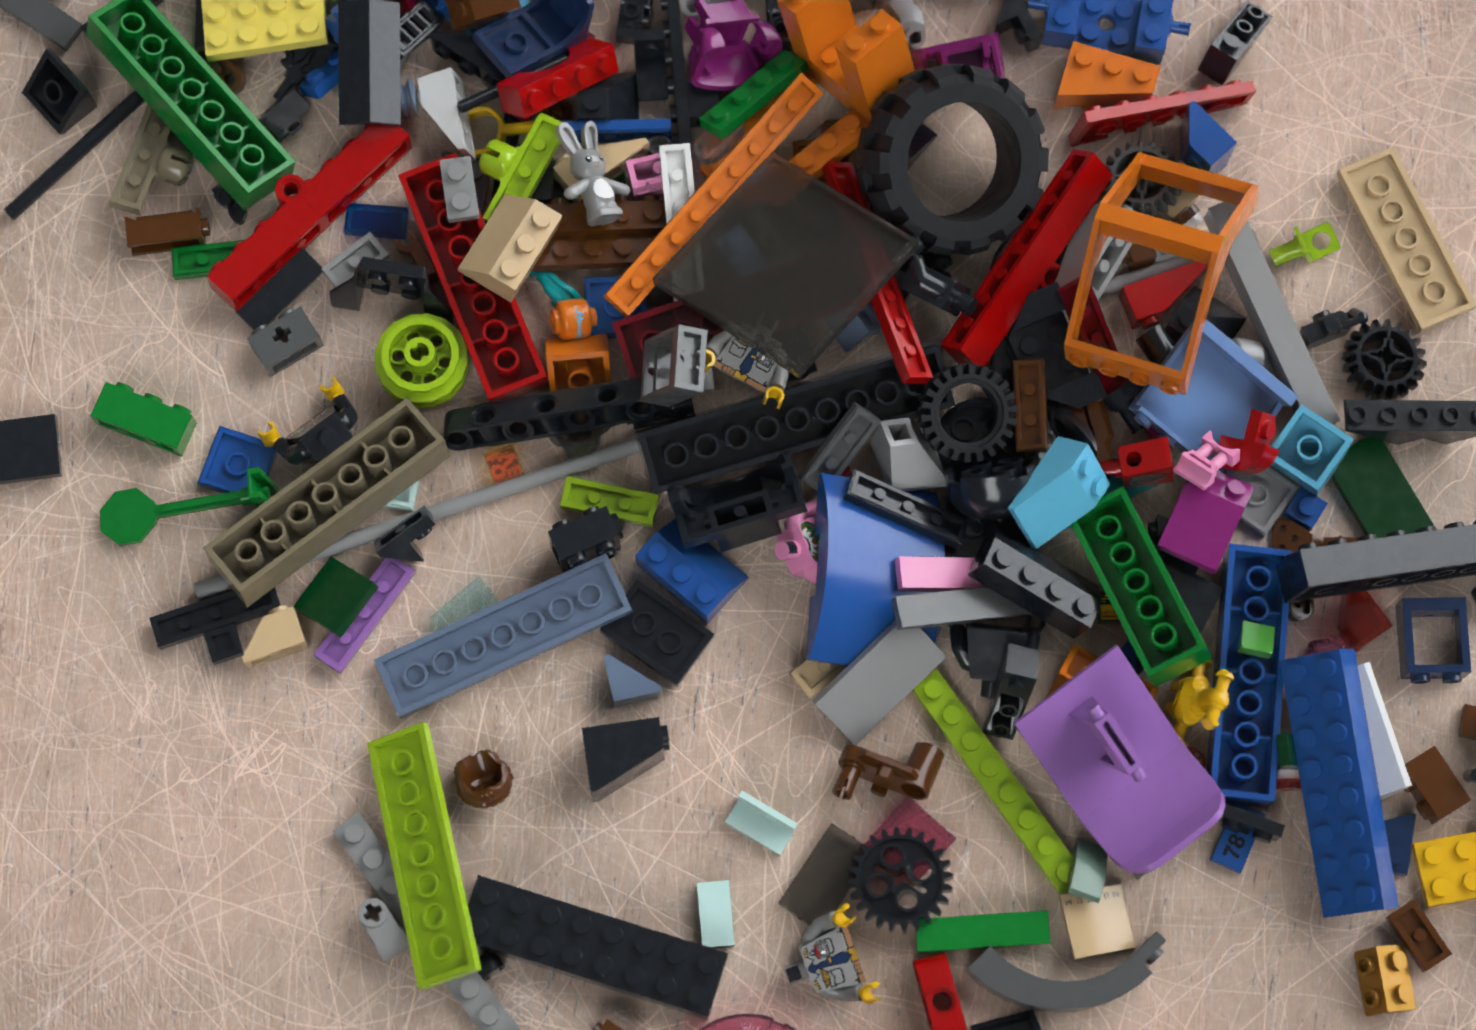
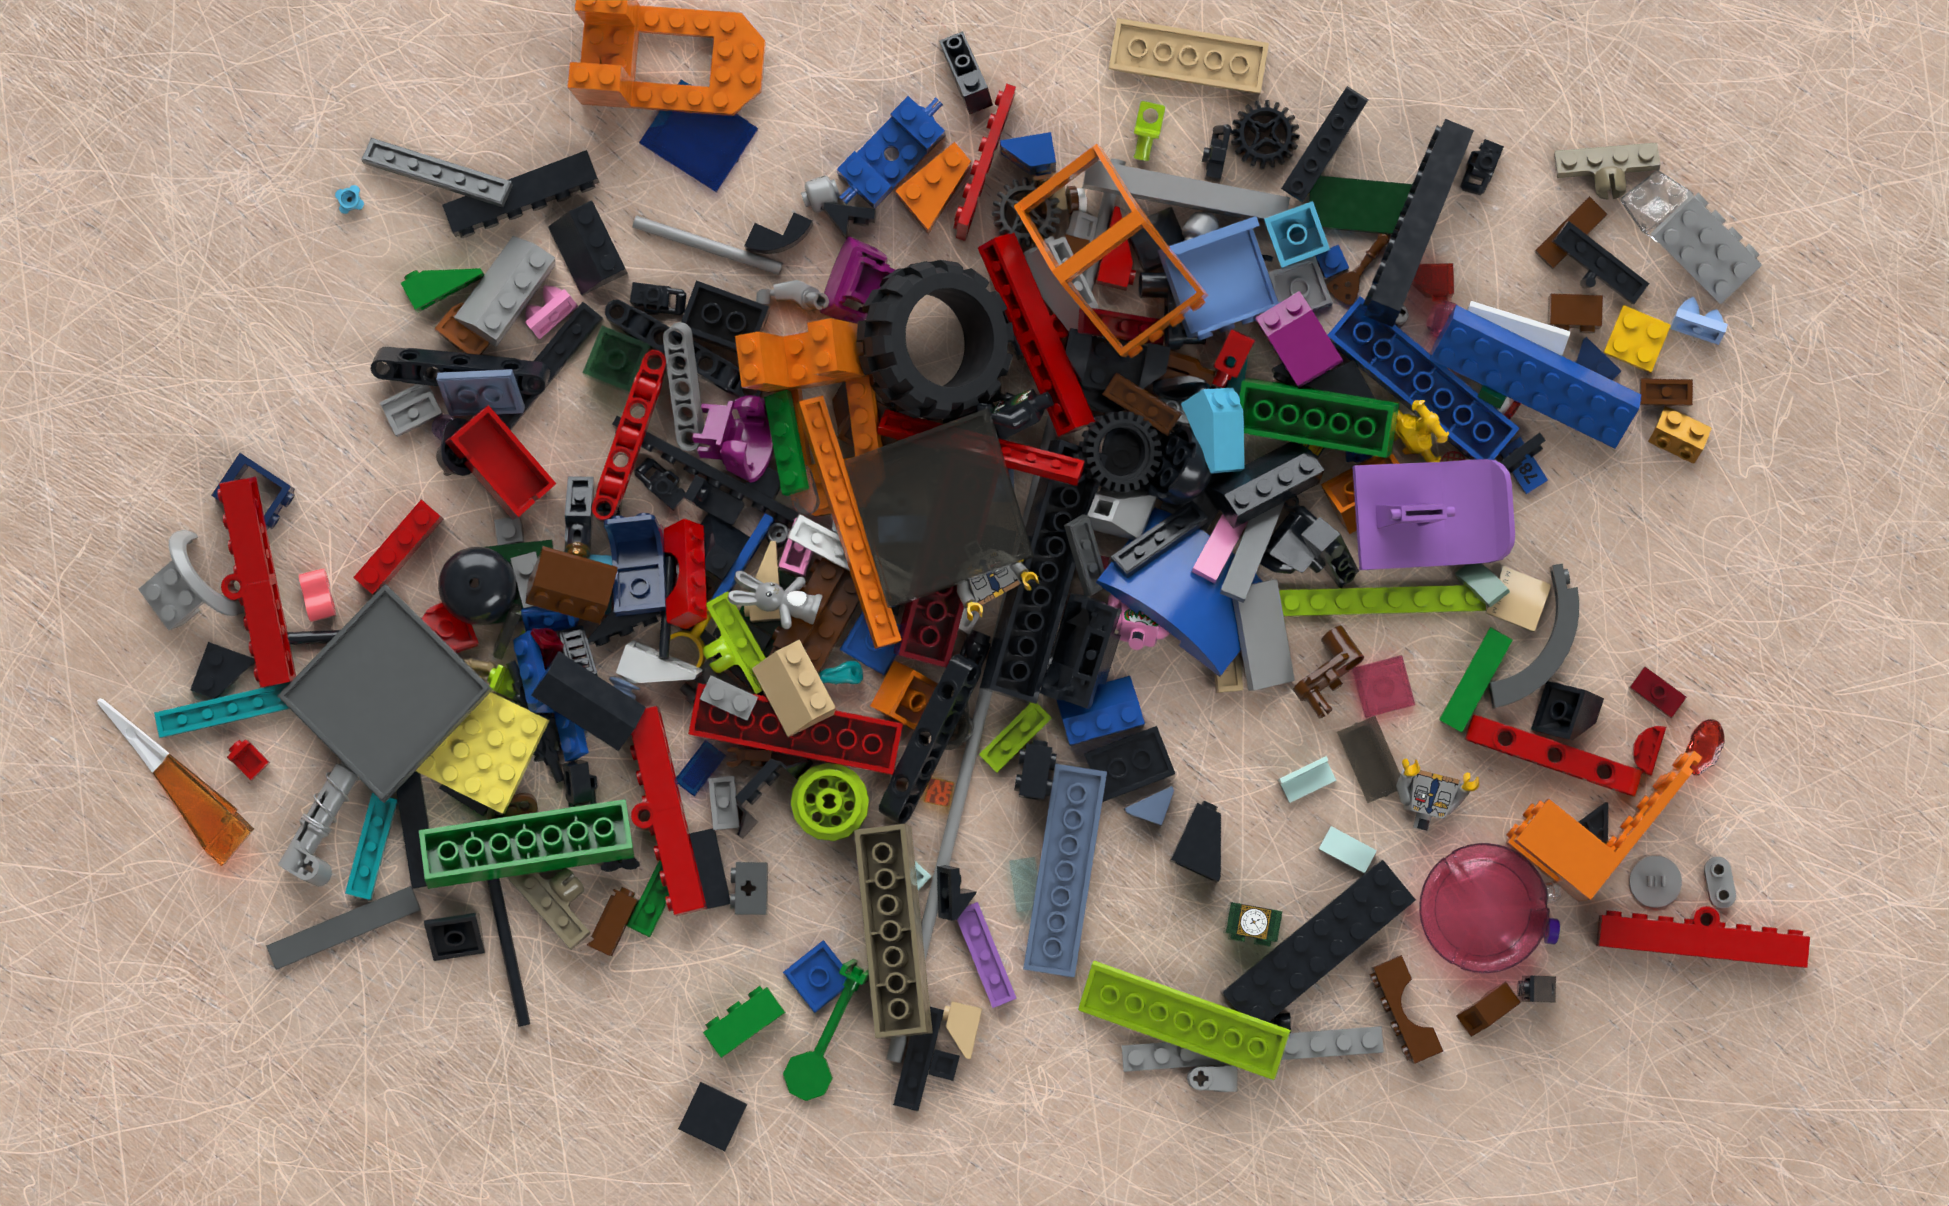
camera: 50 degrees left, 10 degrees up
(320, 434) = (839, 907): black torso -> none
(335, 597) = (961, 967): dark green tile -> none
(483, 779) = (1155, 947): reddish brown hair -> none
(572, 319) = (869, 677): orange head -> none
(572, 859) = (1252, 922): none -> brick
(674, 378) = (973, 626): dark grey window -> none
(886, 905) = (1419, 732): black gear -> none
(1201, 471) = (1265, 323): bright pink piece -> none
(1254, 449) = (1274, 275): red brick -> none
(1256, 639) = (1405, 364): bright green slope -> none
(1432, 607) = (1508, 247): dark blue window -> none

